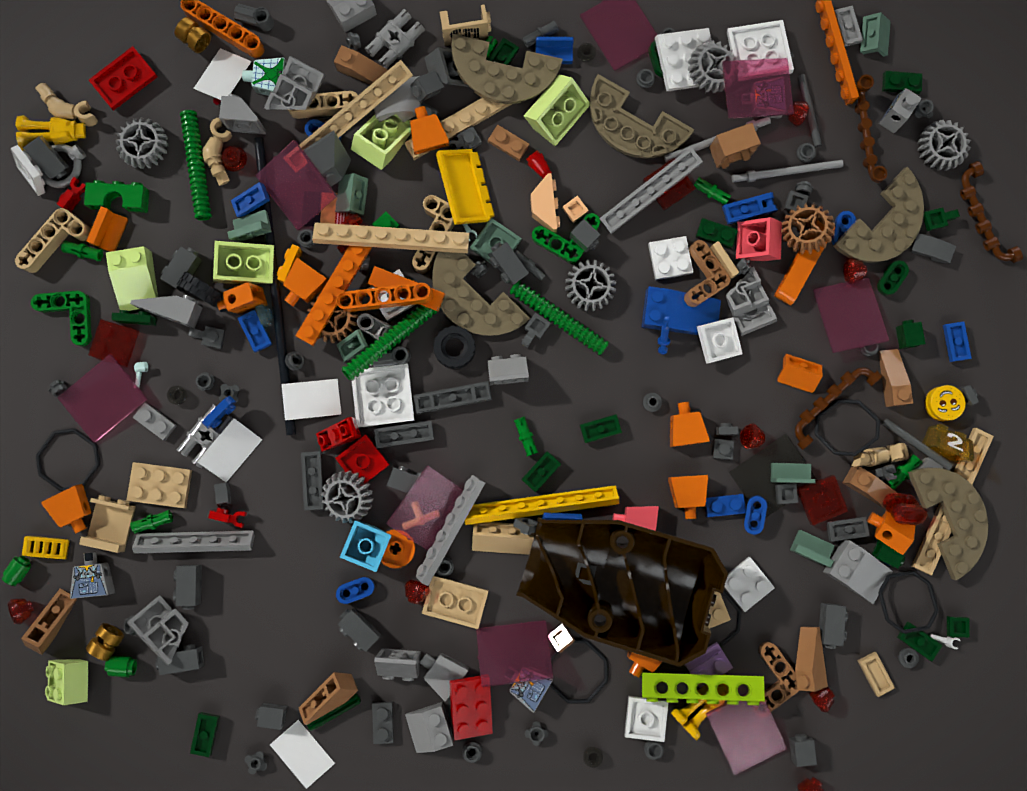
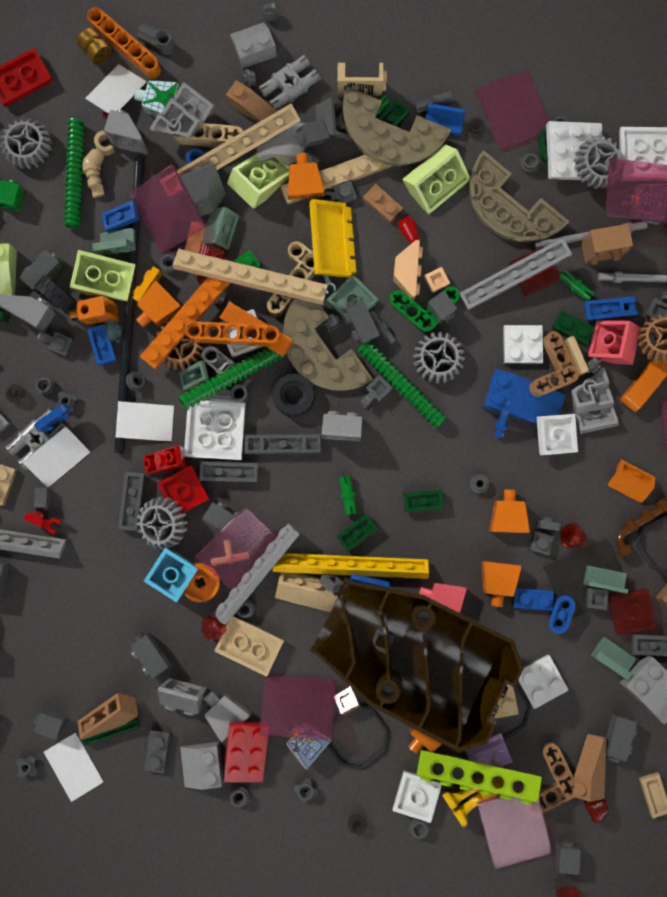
camera: 20 degrees right, 0 degrees up
(234, 158) = (112, 173): clear red cone -> none
(355, 589) = (154, 616): blue plate -> none

